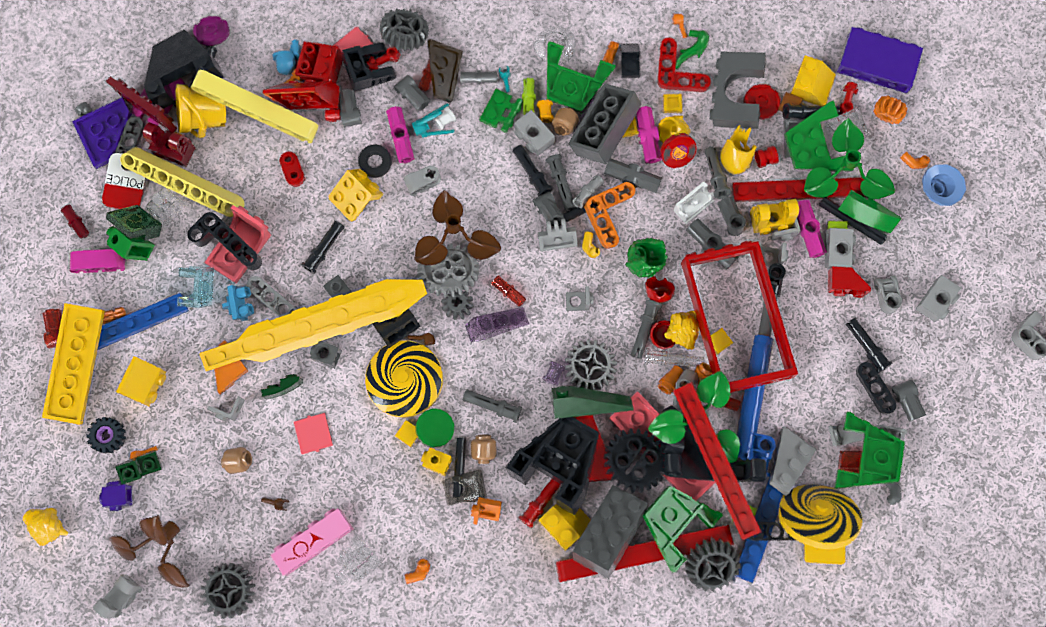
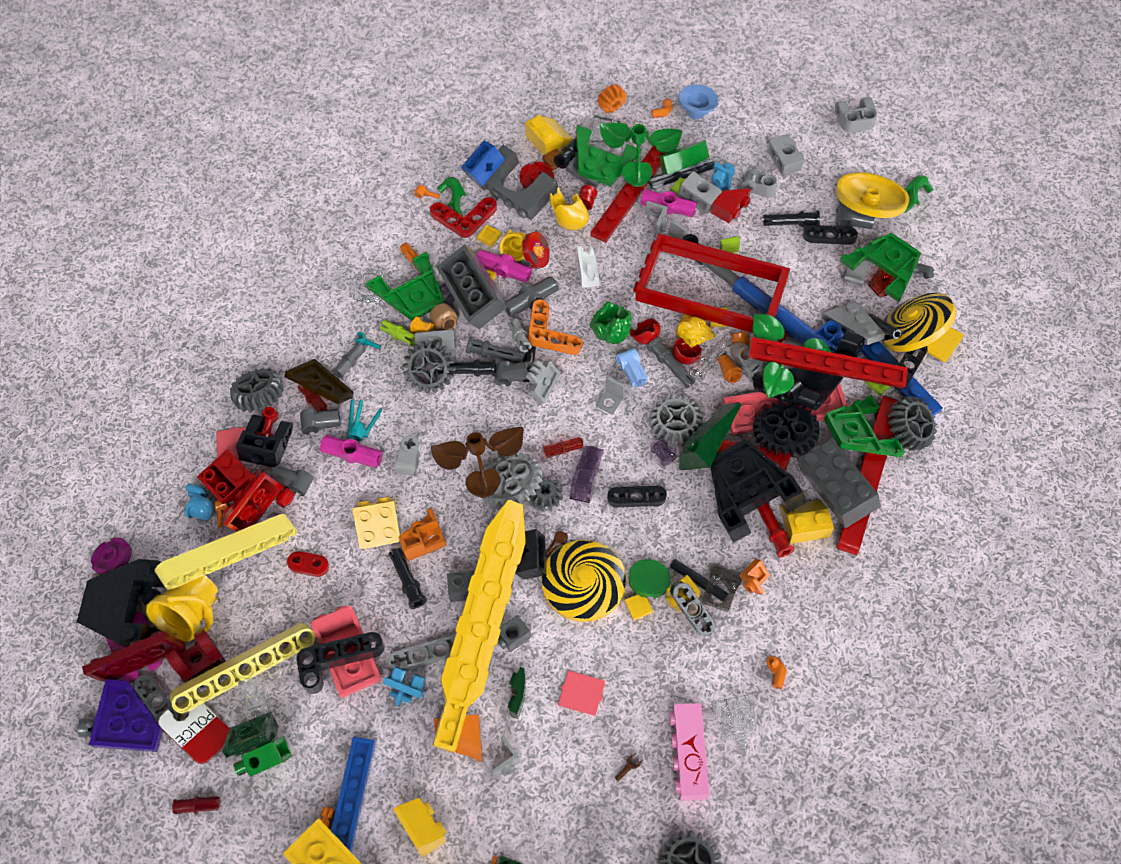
camera: 60 degrees left, 15 degrees down
(95, 260) = (255, 804): dark pink beam -> none
(203, 286) = (366, 706): clear light blue panel -> none
(236, 460) = (562, 779): medium nougat head -> none
(358, 233) = (416, 541): none -> orange slope
(367, 152) = (357, 476): black tyre -> none
(418, 482) = (701, 612): none -> beam
(446, 117) = (366, 412): white bush -> none
(483, 449) = (695, 547): medium nougat head -> none
(497, 106) = (387, 363): green plate -> none
(501, 408) = (666, 513): dark grey pin -> none
(513, 140) = (412, 370): none -> dark grey gear
(514, 384) = (637, 489): none -> black beam
(588, 247) = (568, 365): yellow arm -> none
(620, 296) = (631, 365): none -> light blue piece
(630, 60) = (425, 242): black slope -> none
(703, 234) = (628, 274): dark grey piece -> none
(718, 179) = (583, 236): dark grey pin -> none
(729, 50) = (482, 163): none -> blue brick
(731, 215) = (625, 248): dark grey piece -> none
(783, 212) = (642, 216): yellow brick -> none
(798, 488) = (886, 327): none -> black piece
(799, 307) = (730, 244): none -> lime tile
(850, 89) = (574, 115): red bar -> none
(867, 258) = (723, 175): none -> dark azure hips
(880, 60) = (566, 83): dark purple panel -> none
(943, 402) = (872, 195): none -> yellow dish
(981, 435) = (913, 188): none -> green piece

